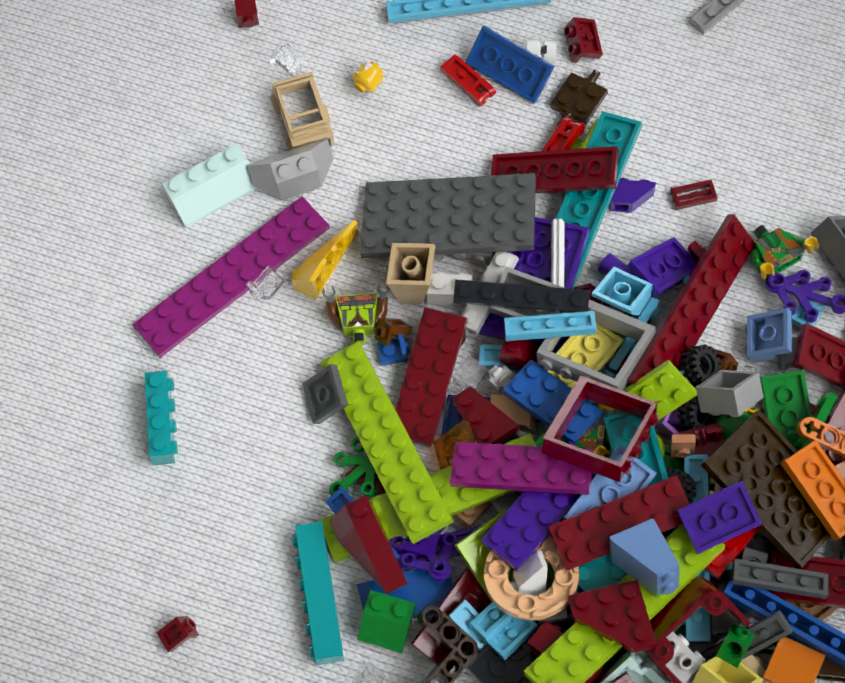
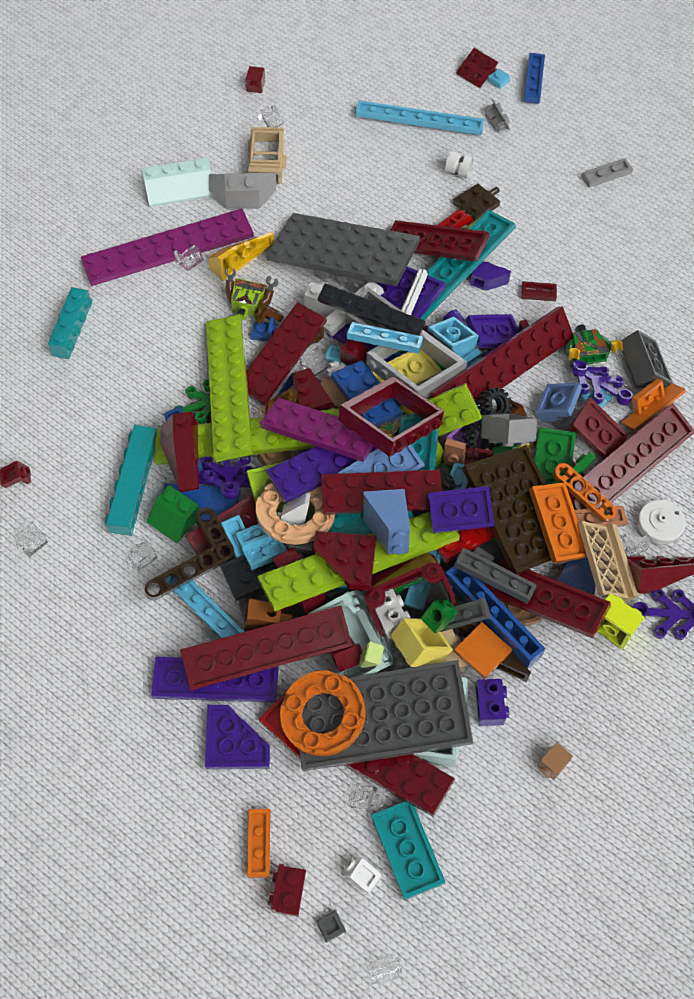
camera: 15 degrees right, 5 degrees down
(325, 394) = (198, 342): dark grey plate -> none
(367, 77) = (324, 144): yellow head -> none
(410, 271) = (296, 273): tan slope -> none
(467, 79) = (398, 167): red plate -> none
(509, 64) = (432, 164): blue tile -> none
(582, 39) = (495, 163): dark red bracket -> none

